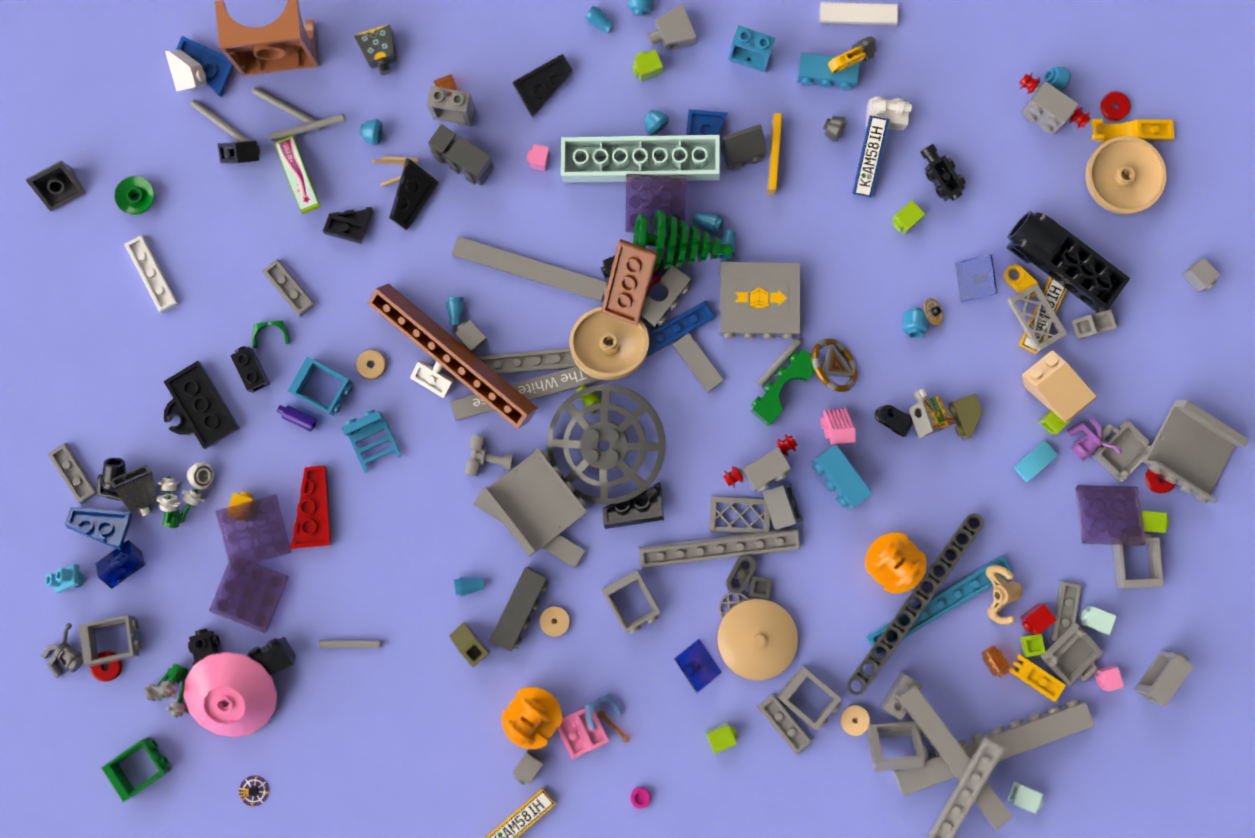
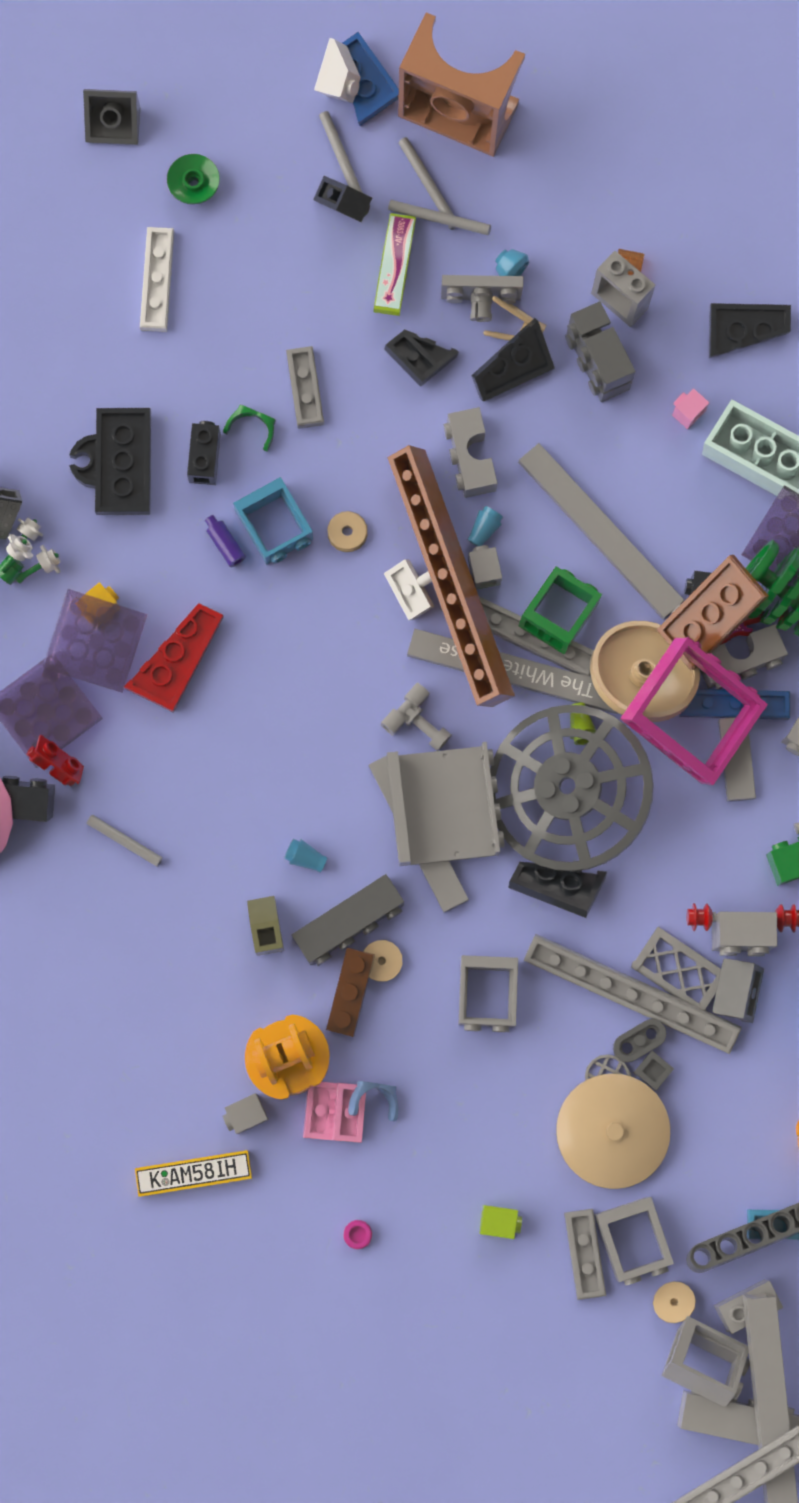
camera: 30 degrees right, 5 degrees down
(200, 475) = (73, 540): white cone -> none
(280, 620) = (65, 768): none -> red hinge
(363, 161) = (481, 291): none -> light grey plate
(369, 425) = (299, 600): dark azure plate -> none
(378, 47) = (576, 174): dark grey torso -> none
(406, 255) = (474, 475): none -> light grey arch
(533, 353) = (549, 631): none -> green window
(547, 652) = (350, 992): none -> reddish brown plate
(602, 715) = (371, 1107): clear orange hinge -> none
(688, 350) = (729, 680): none -> dark pink window
(697, 665) = (522, 1117): clear blue piece -> none

